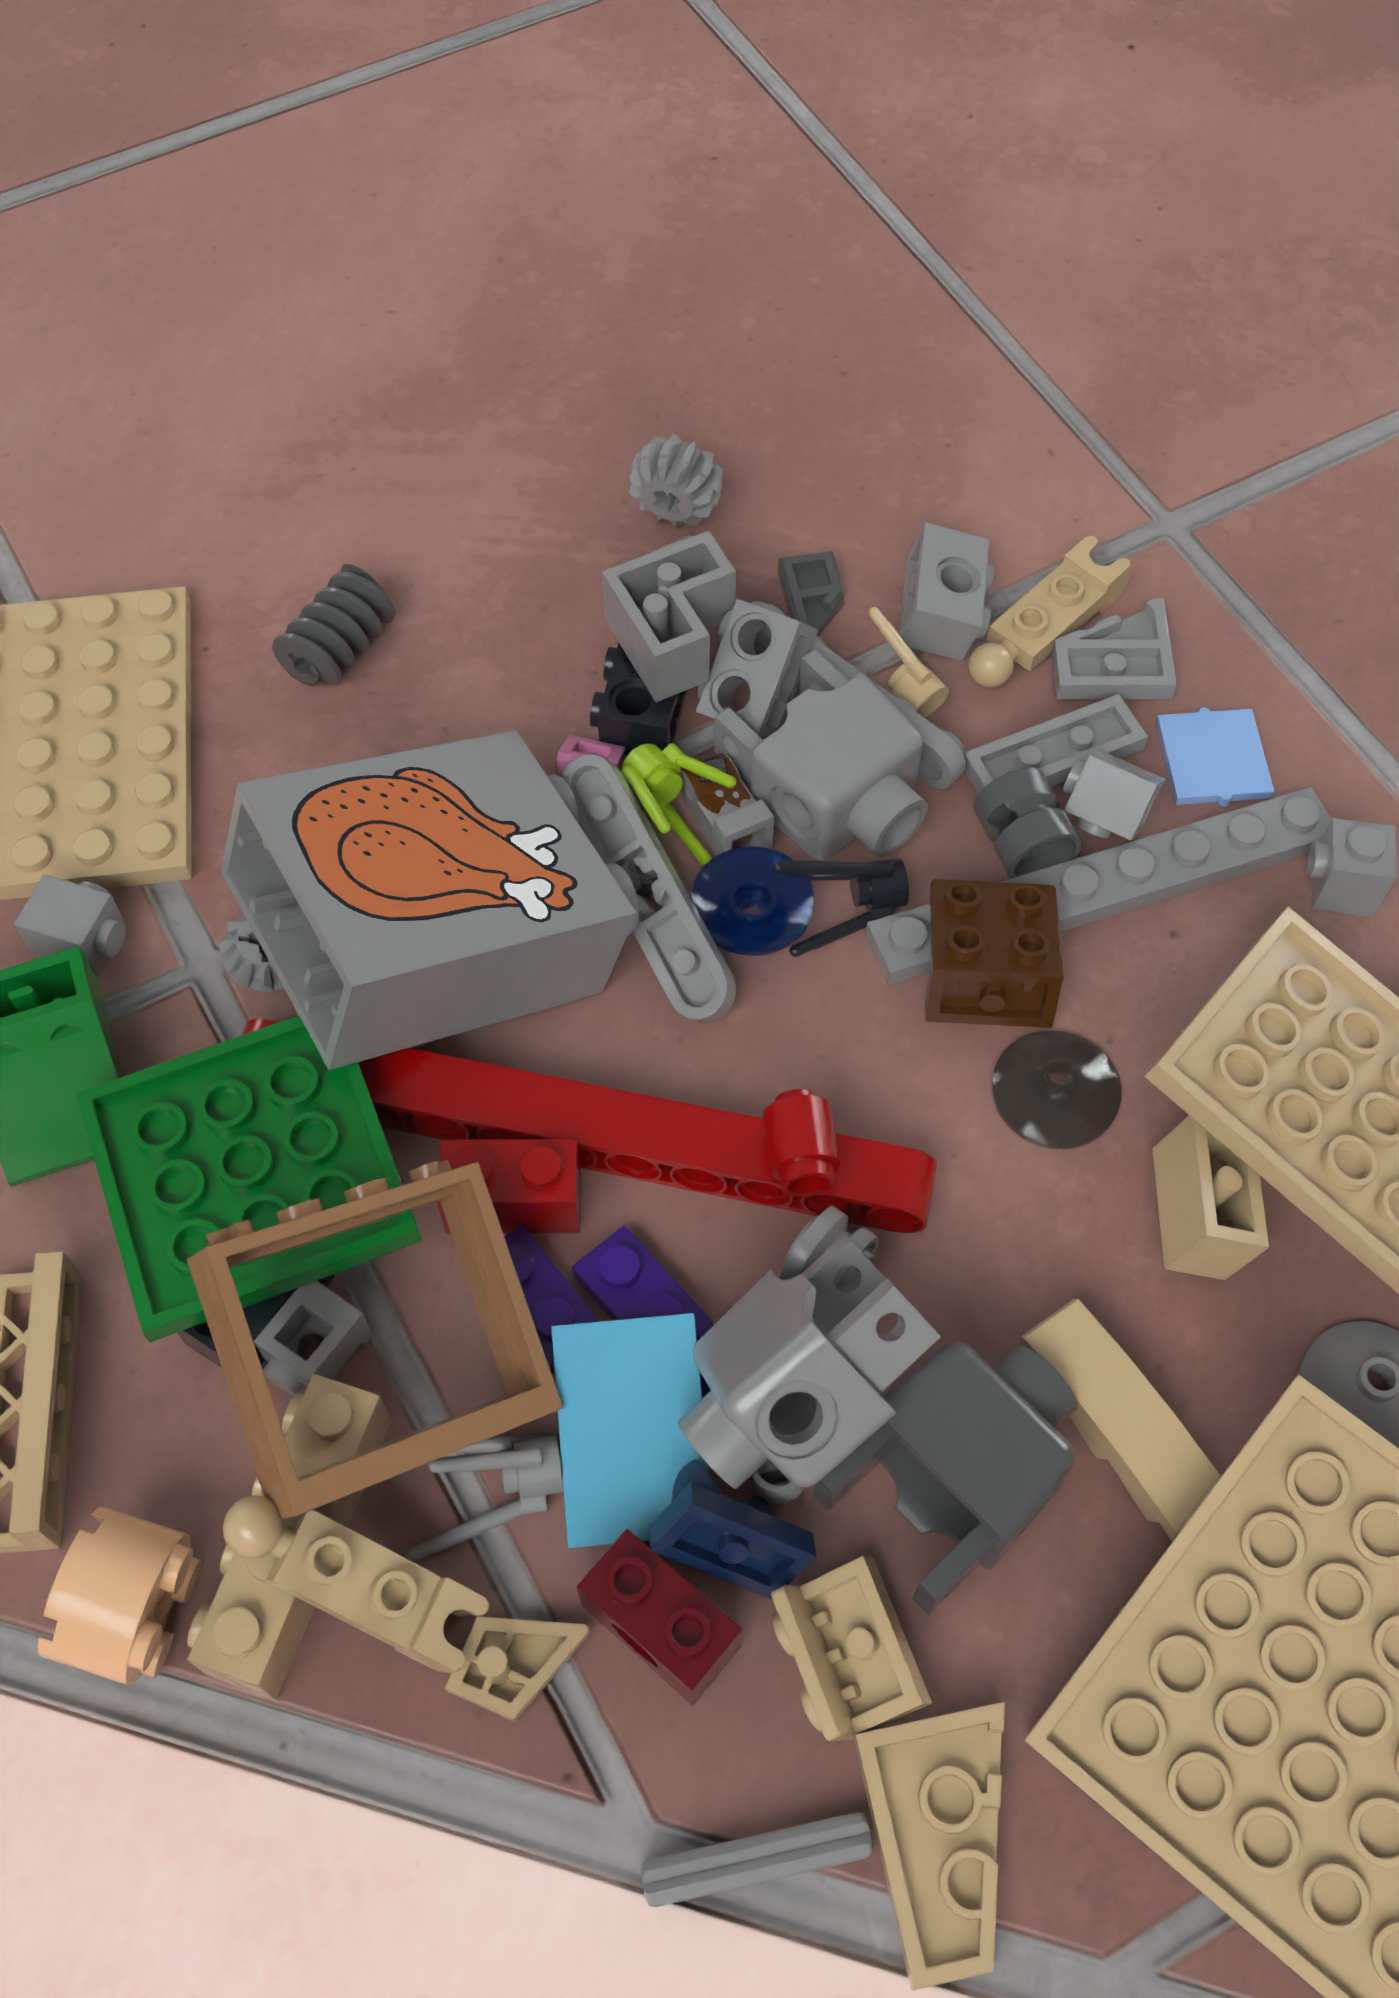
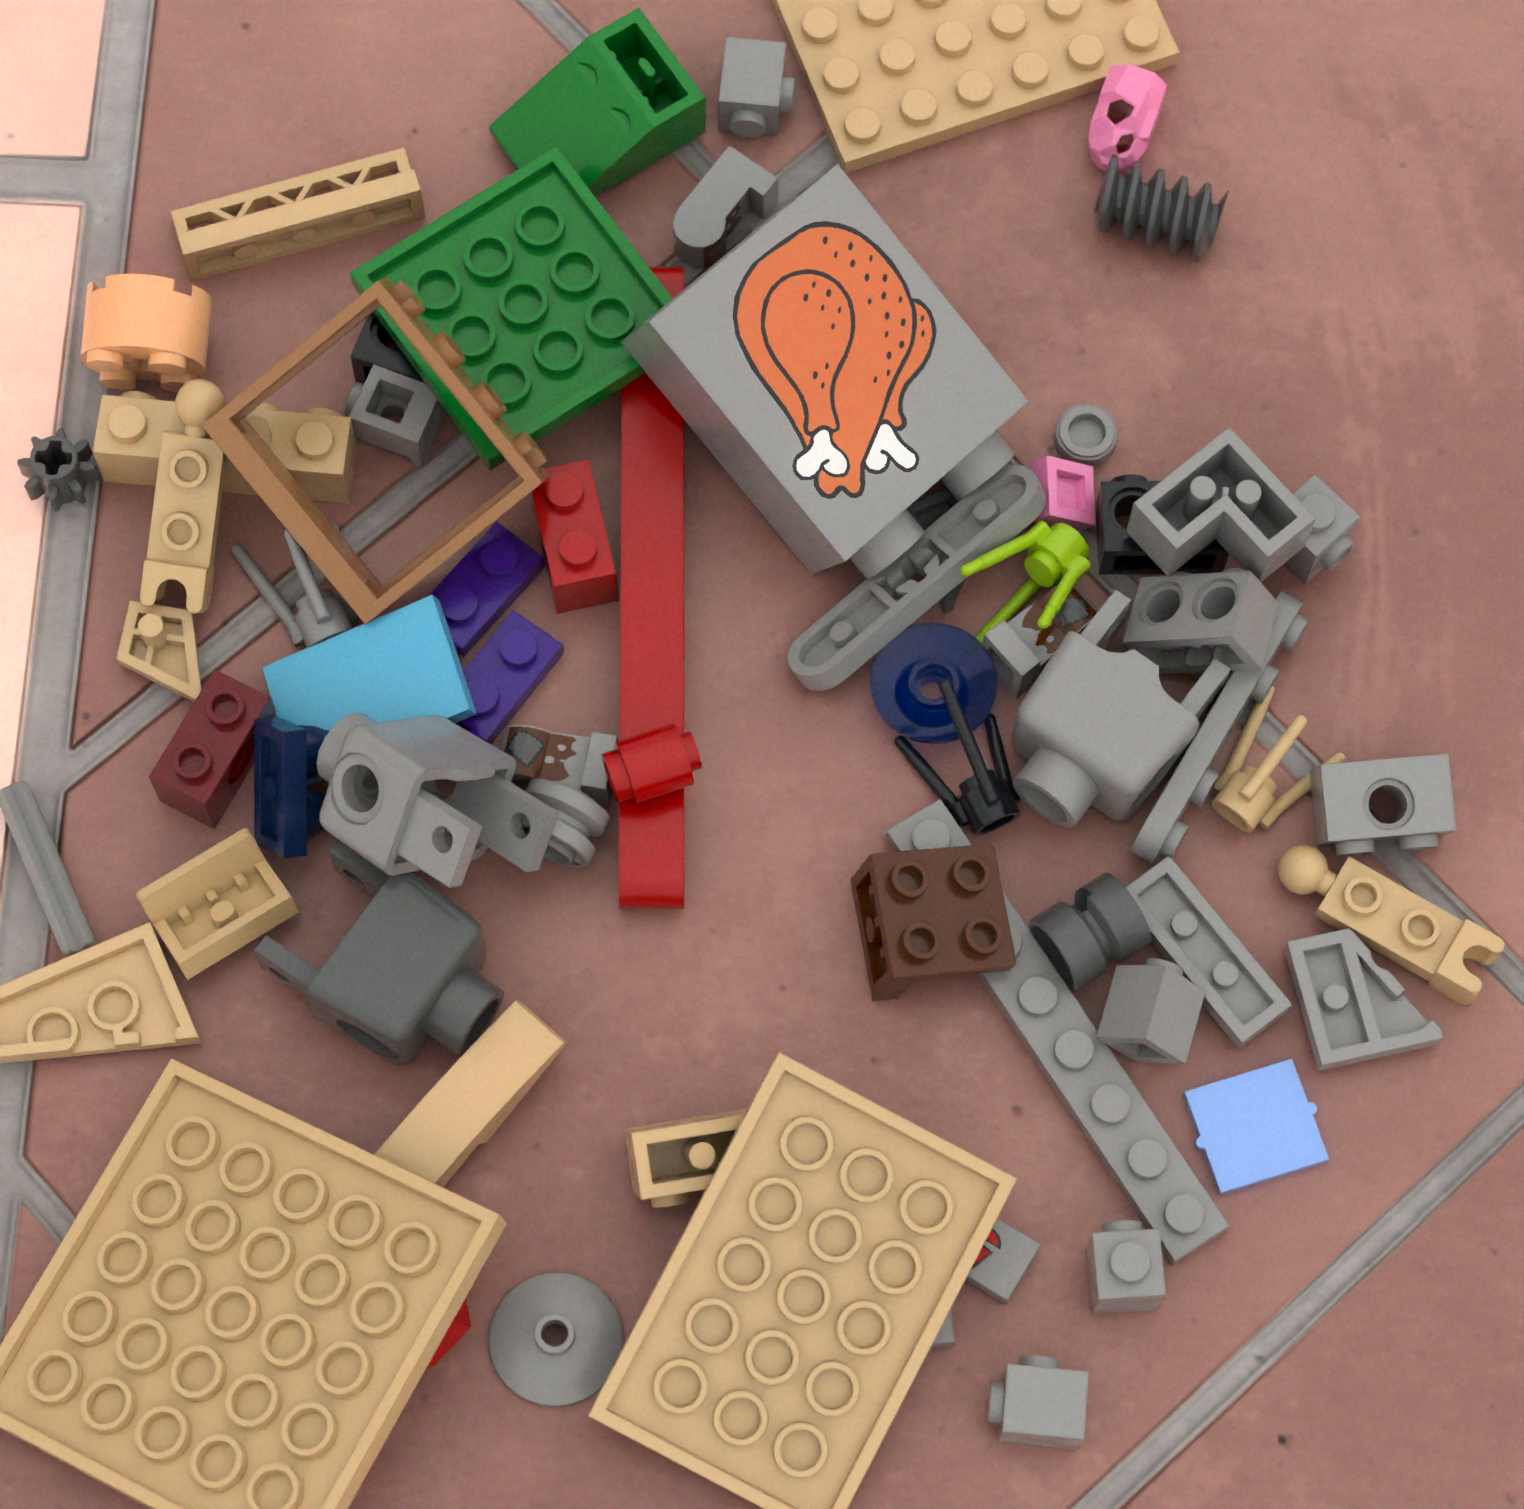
camera: 75 degrees right, 10 degrees up
(200, 995) = (719, 205): none -> light grey leg
(230, 639) = (1125, 116): none -> bright pink rock
(255, 1767) = (59, 456): none -> dark grey gear
(540, 733) = (1086, 435): none -> light grey tile
(675, 481) = (1449, 489): light grey gear -> none
(758, 1242) = (560, 758): none -> leg
(812, 588) = (1357, 670): dark grey tile -> none
(1052, 1112) = (818, 1042): clear smoke dish -> none

